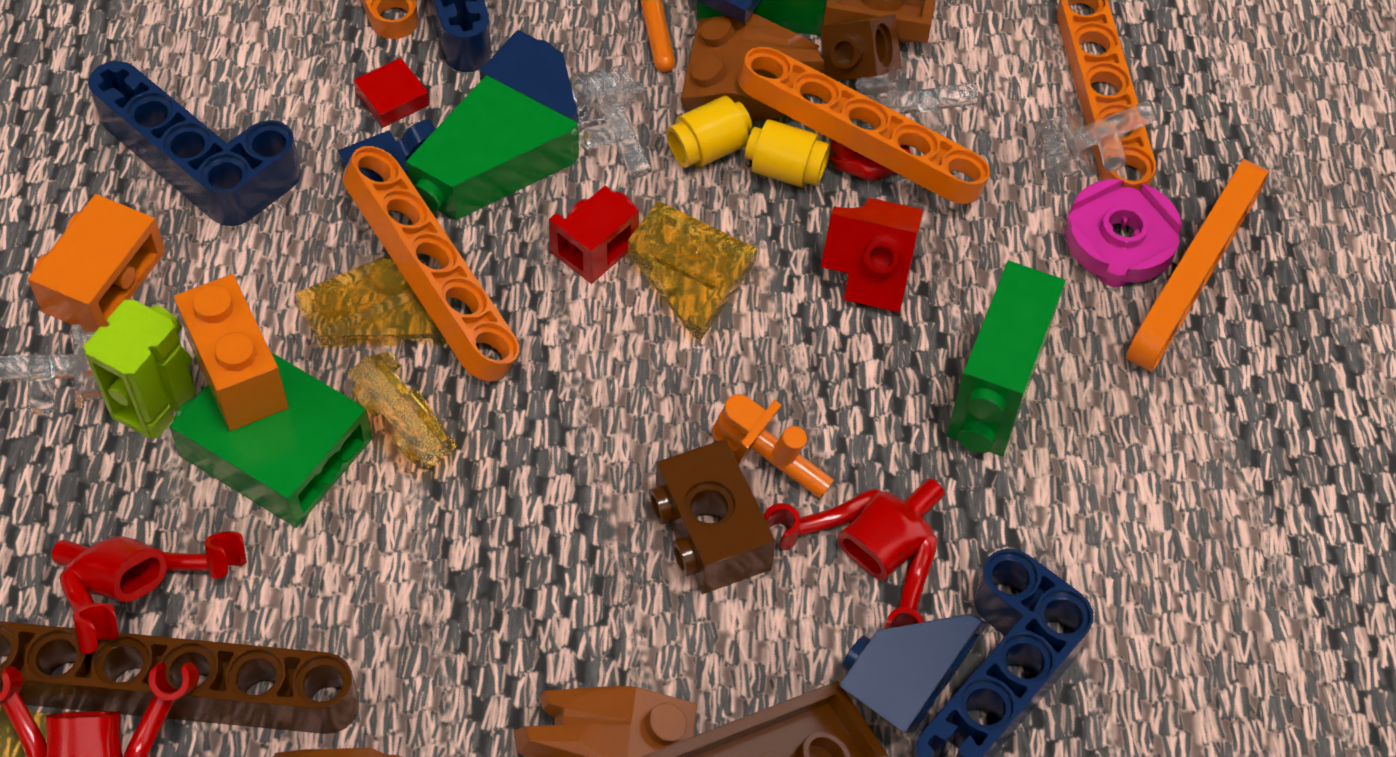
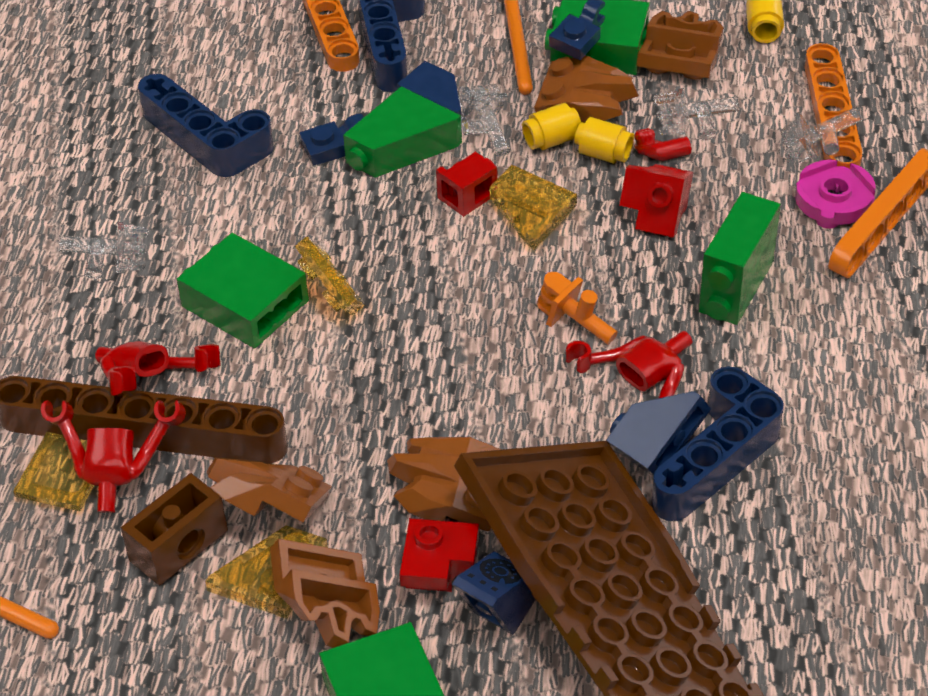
camera: 10 degrees right, 10 degrees down
(96, 263) = (136, 190): orange brick -> none
(141, 367) = (160, 245): lime brick -> none
(231, 352) = (220, 232): orange brick -> none
(367, 307) = (321, 218): clear yellow wing -> none
(391, 92) = (338, 101): red tile -> none
(430, 284) = (357, 210): orange beam -> none
(713, 484) = (531, 347): reddish brown brick -> none
(861, 47) = (659, 74): reddish brown brick -> none
(878, 145) = (657, 121): orange beam -> none

